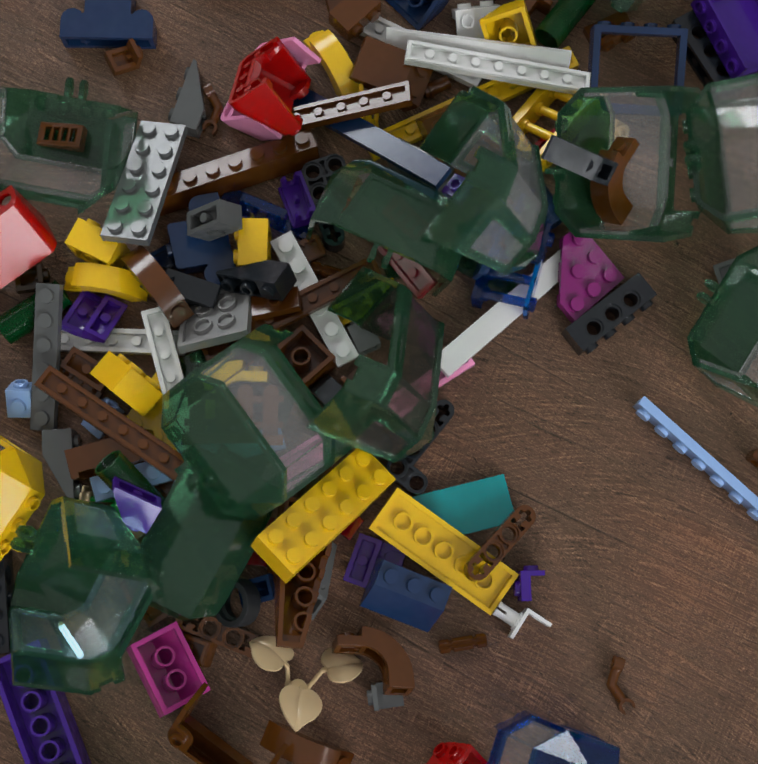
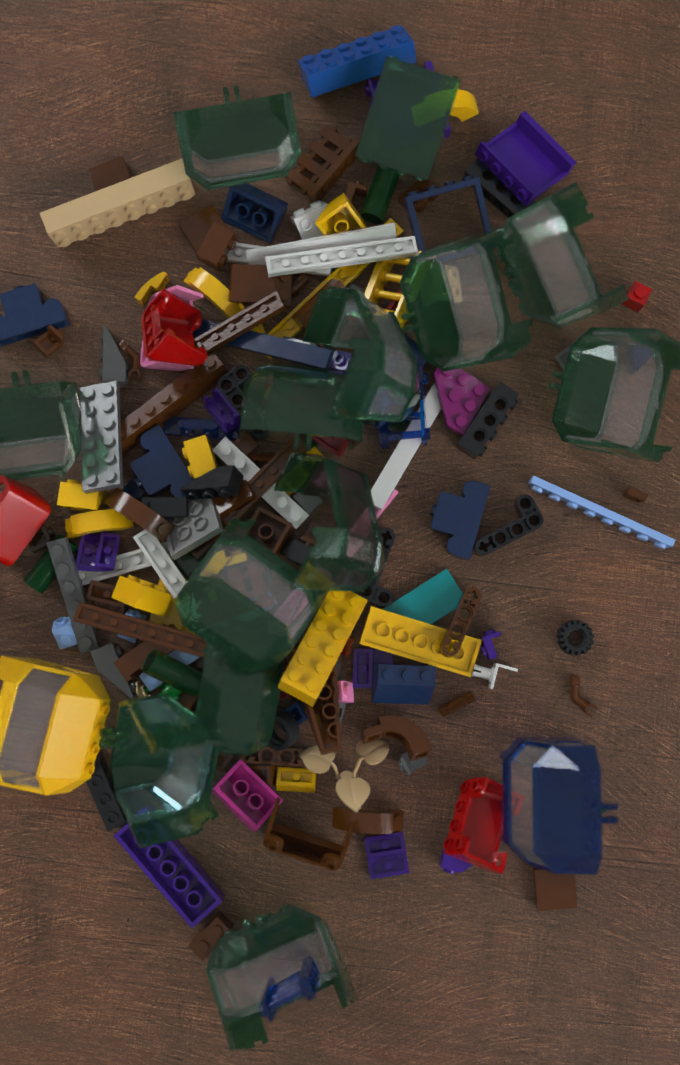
camera: 10 degrees left, 5 degrees up
(79, 141) = (38, 419): reddish brown slope -> none
(136, 506) = (182, 686): dark purple slope -> none
(214, 220) = (165, 450): dark grey brick -> none
(235, 671) = (295, 780): none -> yellow slope
(263, 34) = (155, 284): none -> yellow slope
(331, 582) = (346, 692): none -> bright pink bracket
(539, 418) = (460, 517): none -> dark blue brick
(579, 160) = (429, 313): black slope -> none
(590, 452) = (506, 531): none -> black beam
(611, 200) = (454, 319): reddish brown arch -> none
(649, 606) = (587, 637): none -> black tyre

